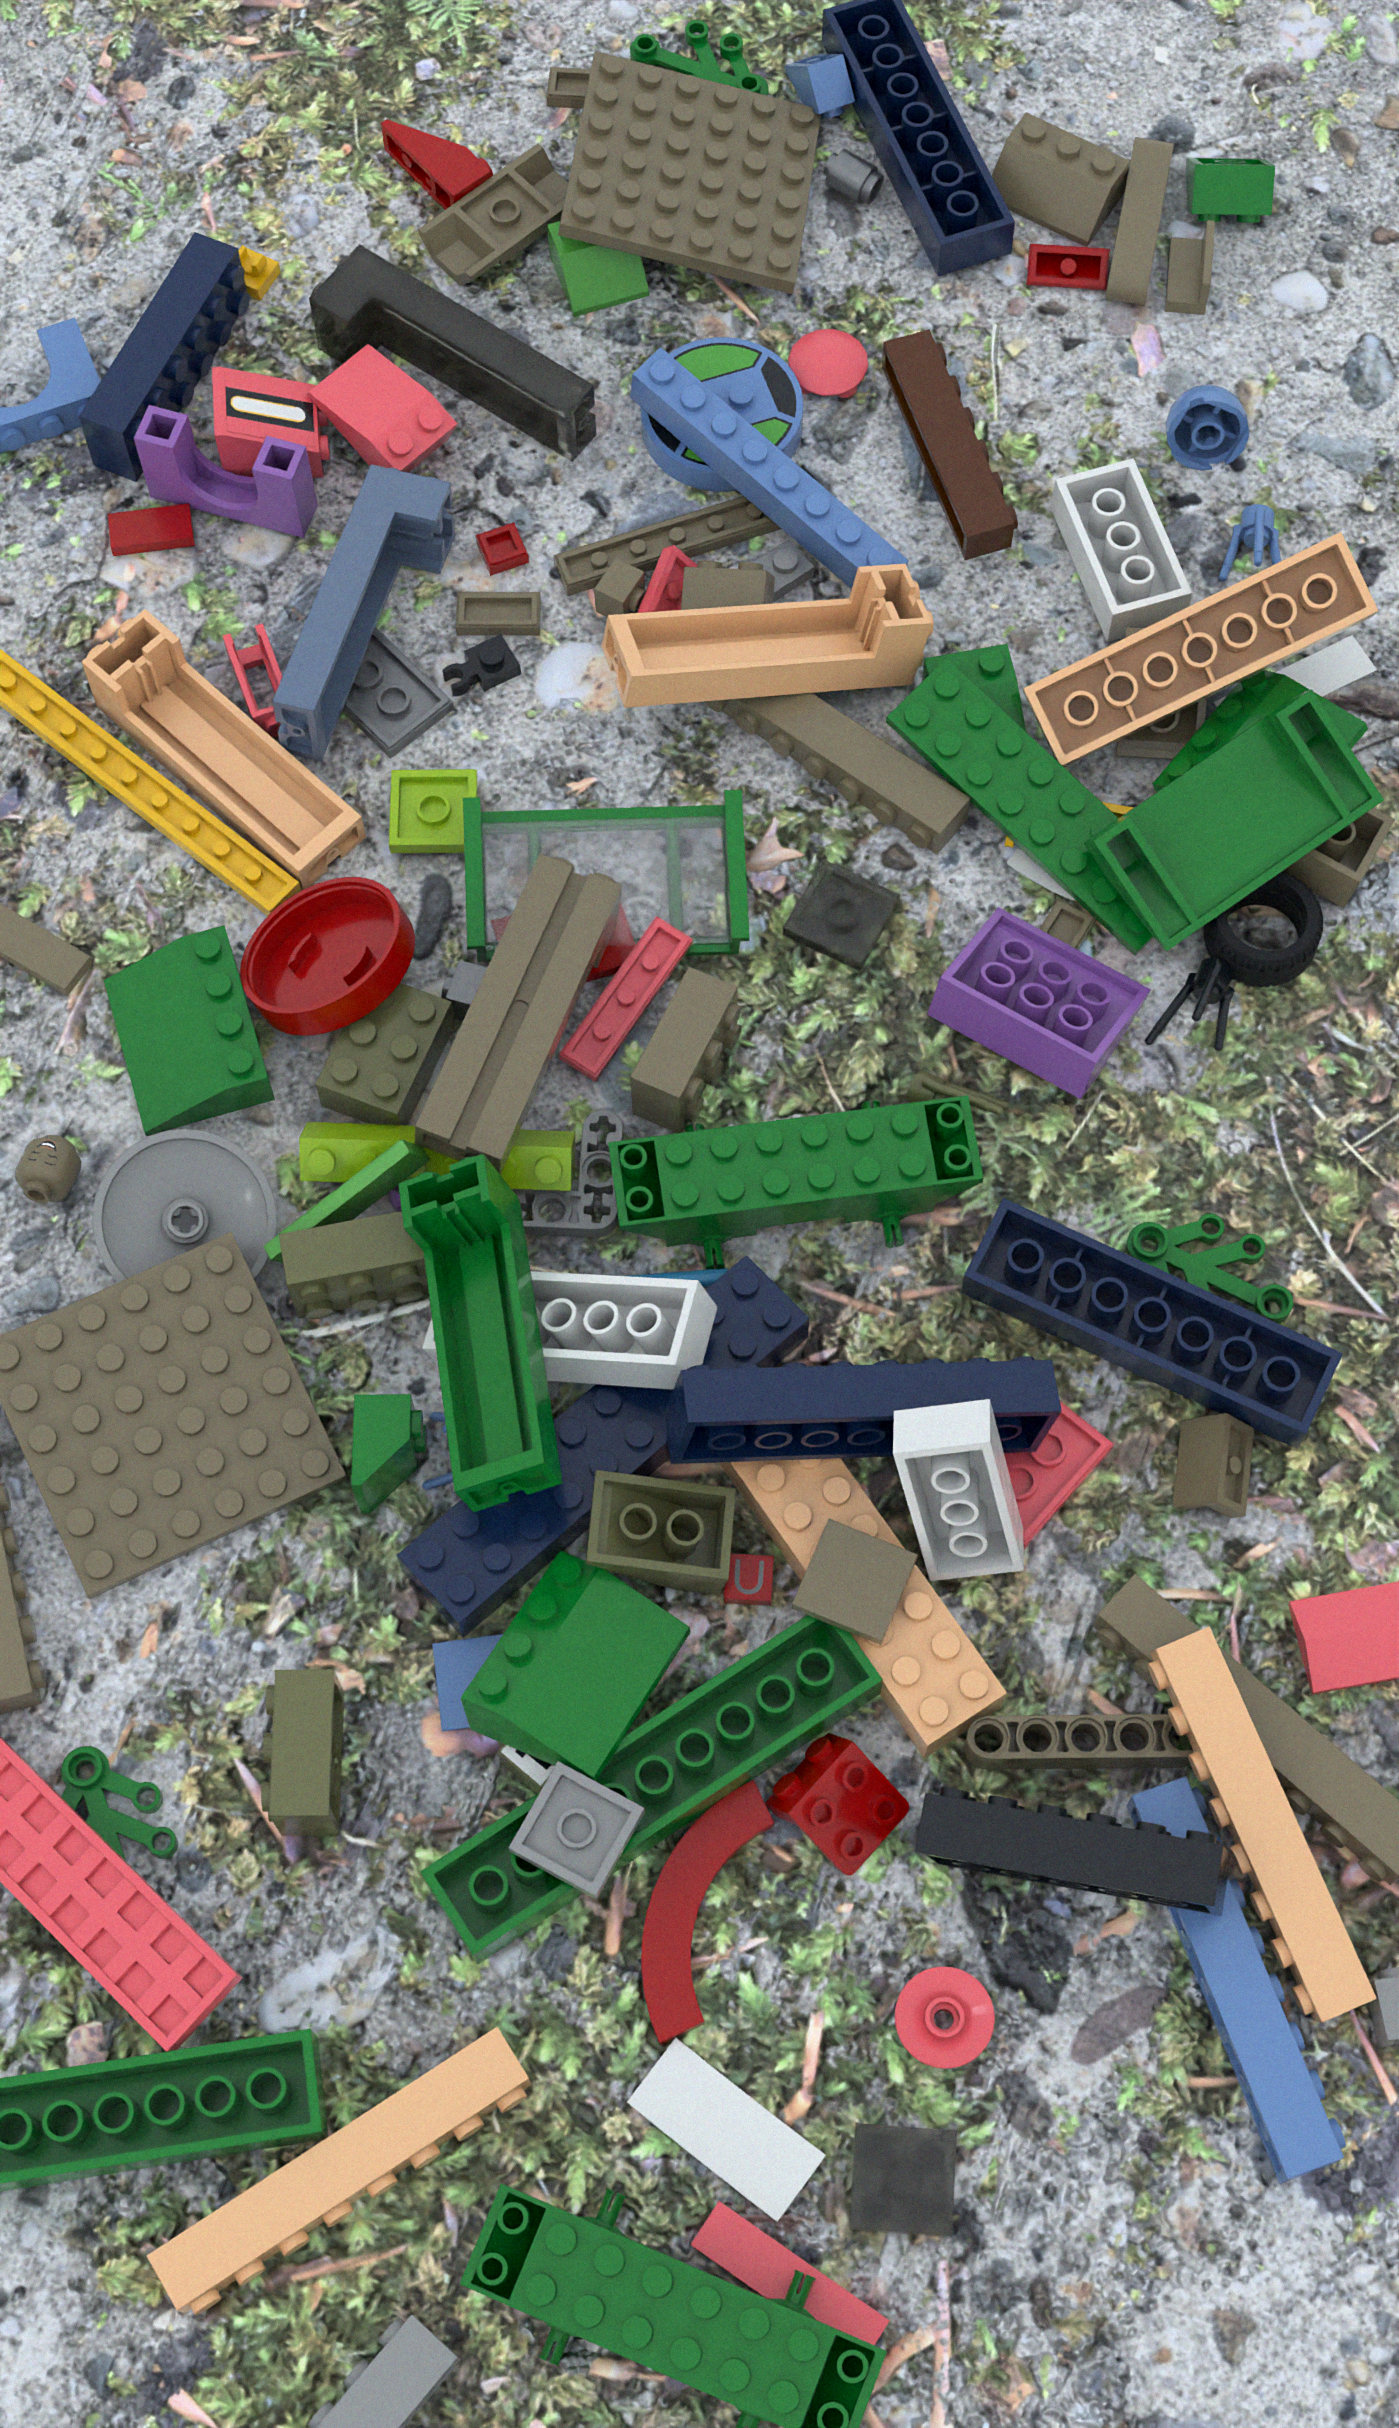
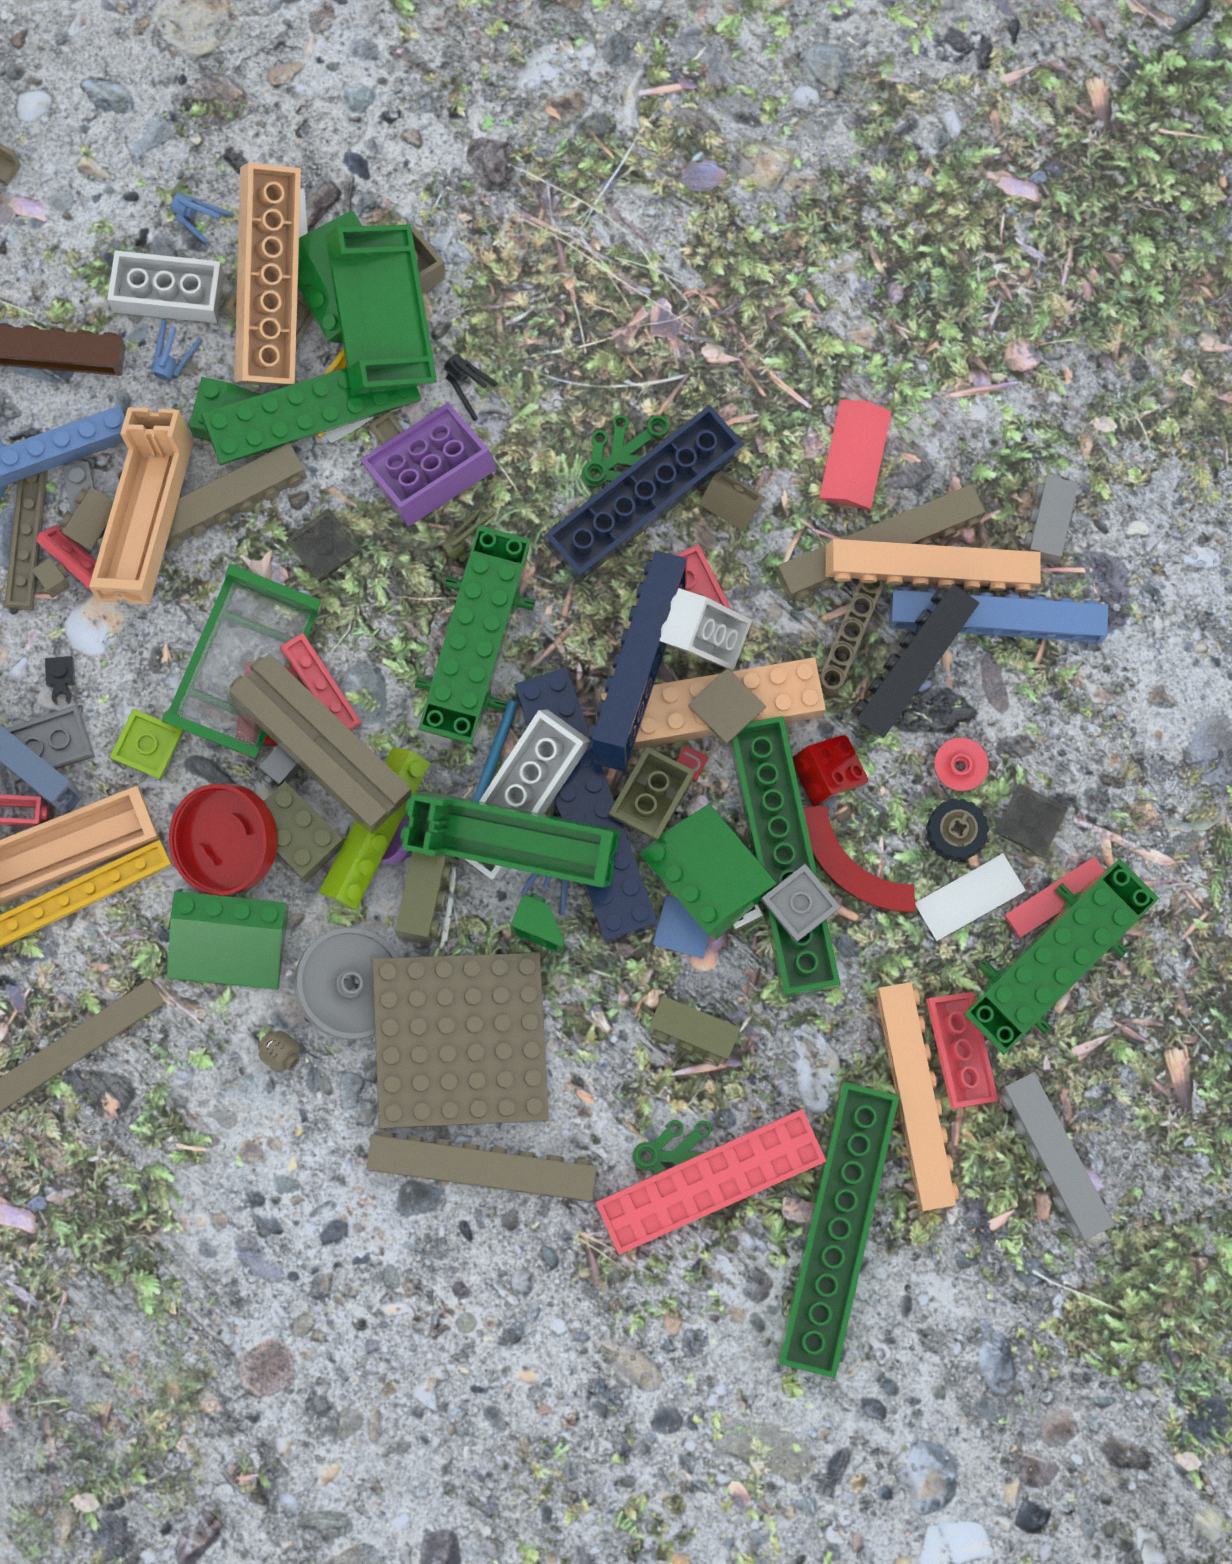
camera: 75 degrees left, 10 degrees up
(359, 1191) = (385, 887): bright green tile -> none
(432, 2226) = (961, 1052): none -> coral slope
(498, 613) = (27, 654): dark tan tile -> none
(577, 1203) = (437, 767): light grey beam -> none
(686, 1051) = (375, 664): dark tan brick -> none
(829, 2057) = (957, 830): none -> black wheel
(1005, 601) = (164, 364): none -> medium blue plant
(1206, 427) = (106, 200): medium blue cylinder -> none
(1270, 967) = (456, 304): black tyre -> none

